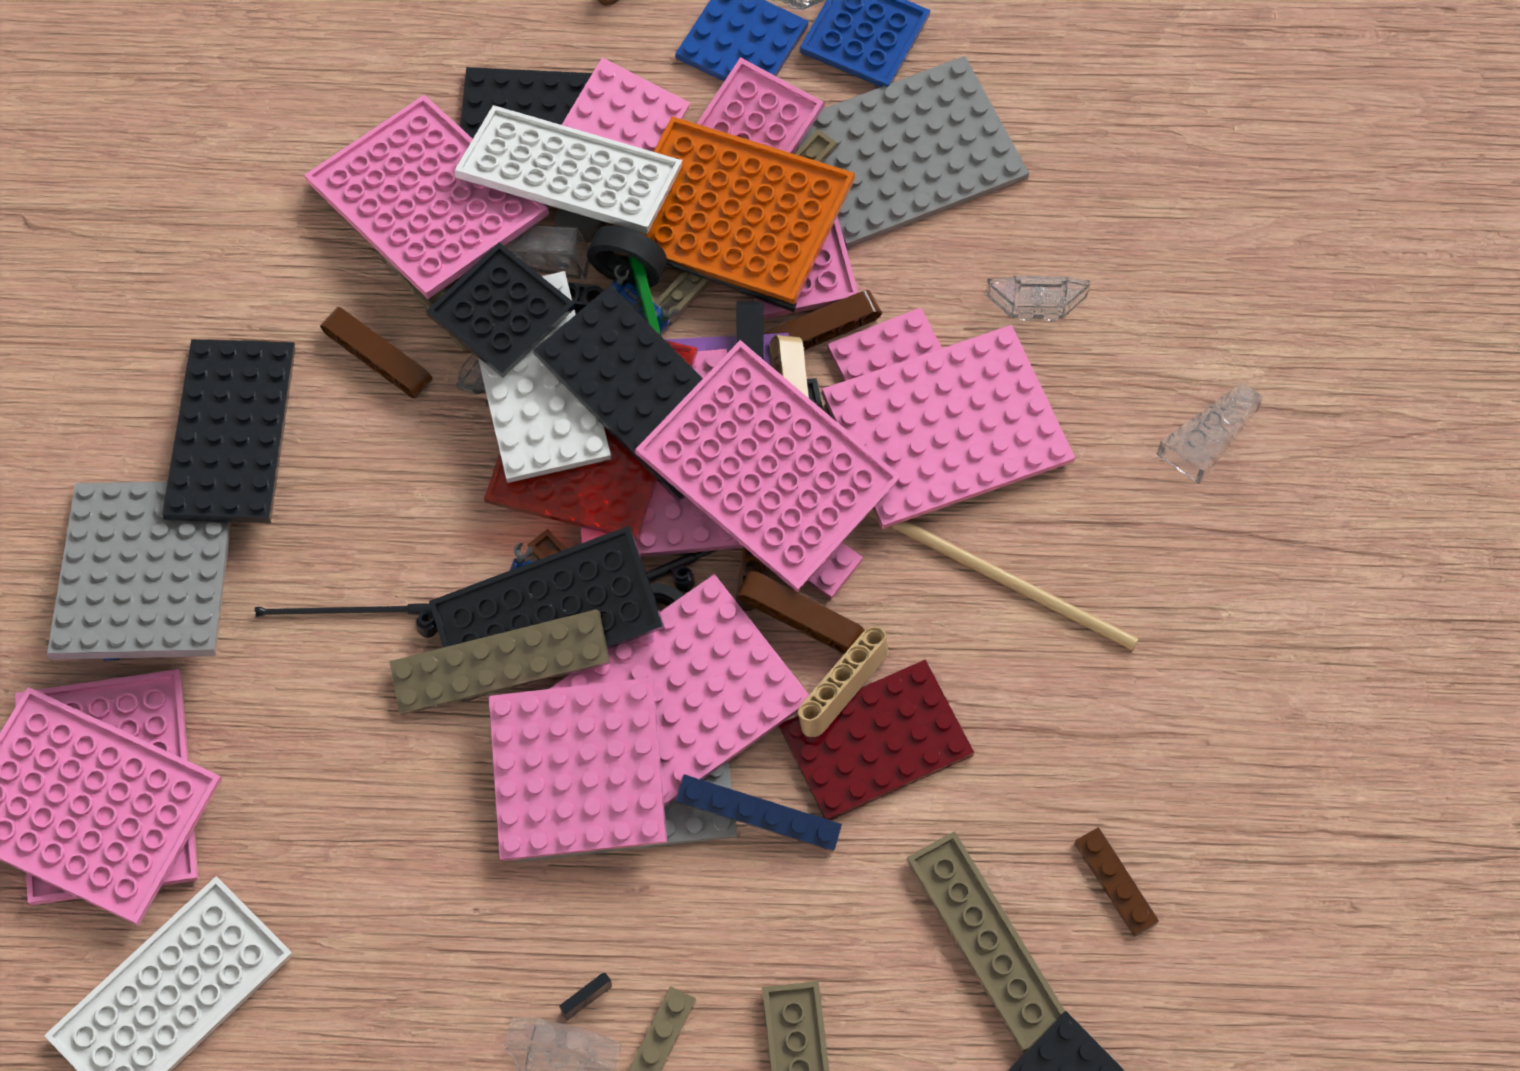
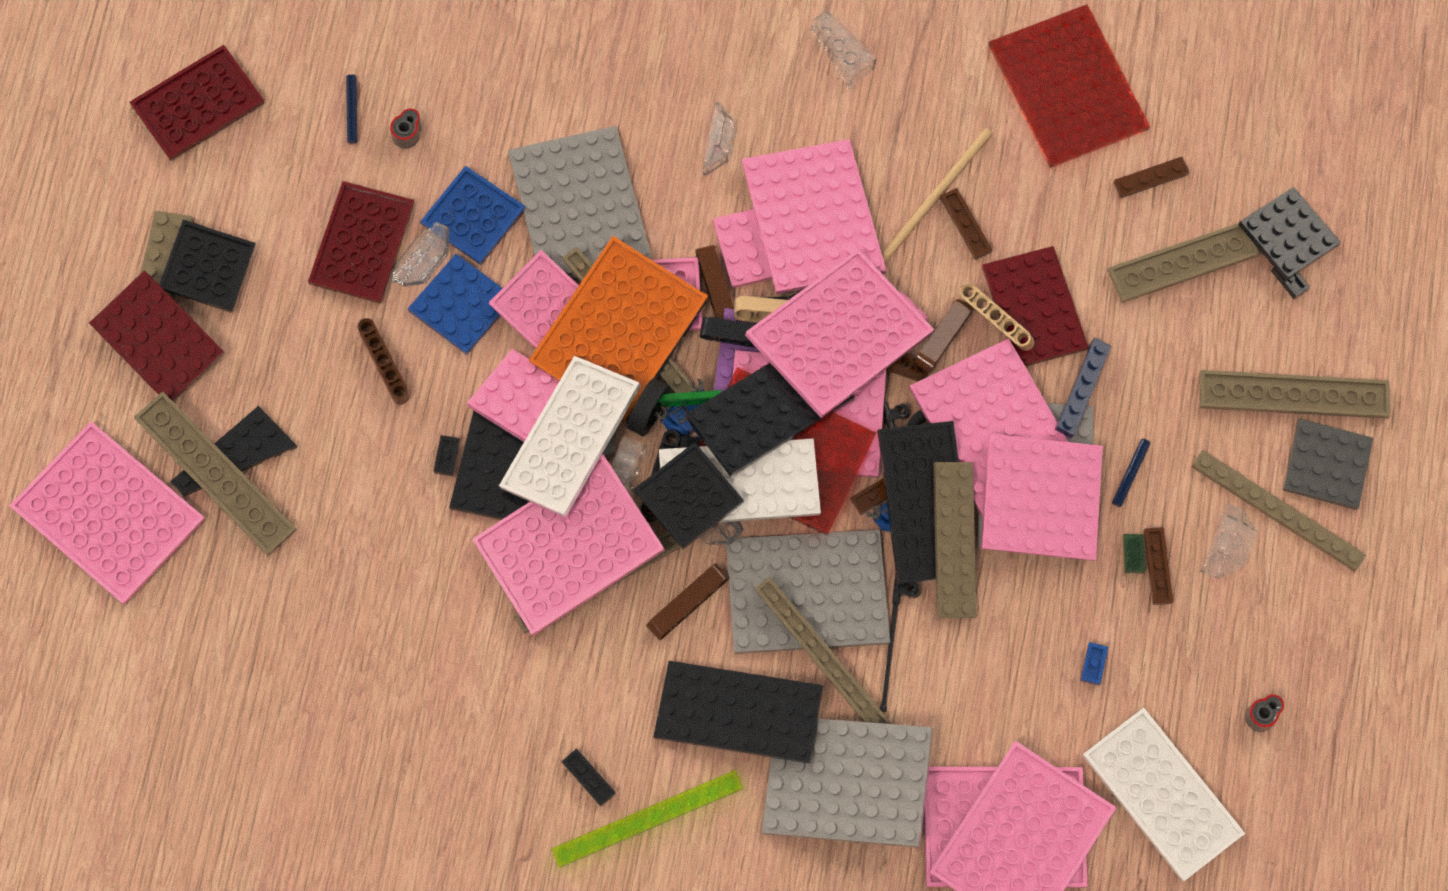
camera: 85 degrees left, 5 degrees up
(84, 349) = (647, 819): none -> clear neon green plate
(130, 273) = (588, 777): none -> black plate
(313, 522) = (820, 652): none -> dark tan plate
(350, 879) = (1094, 663): none -> blue plate
(410, 498) = (828, 579): none -> light grey plate
(507, 952) = (1158, 566): none -> reddish brown plate
(521, 916) = (1133, 553): none -> clear green plate
(533, 53) = (446, 455): none -> black plate
(585, 996) = (1194, 518): black tile -> none
(645, 901) = (1131, 472): none -> dark blue axle
(983, 629) = (966, 223): none -> reddish brown plate
(1236, 748) = (1068, 85): none -> clear red plate

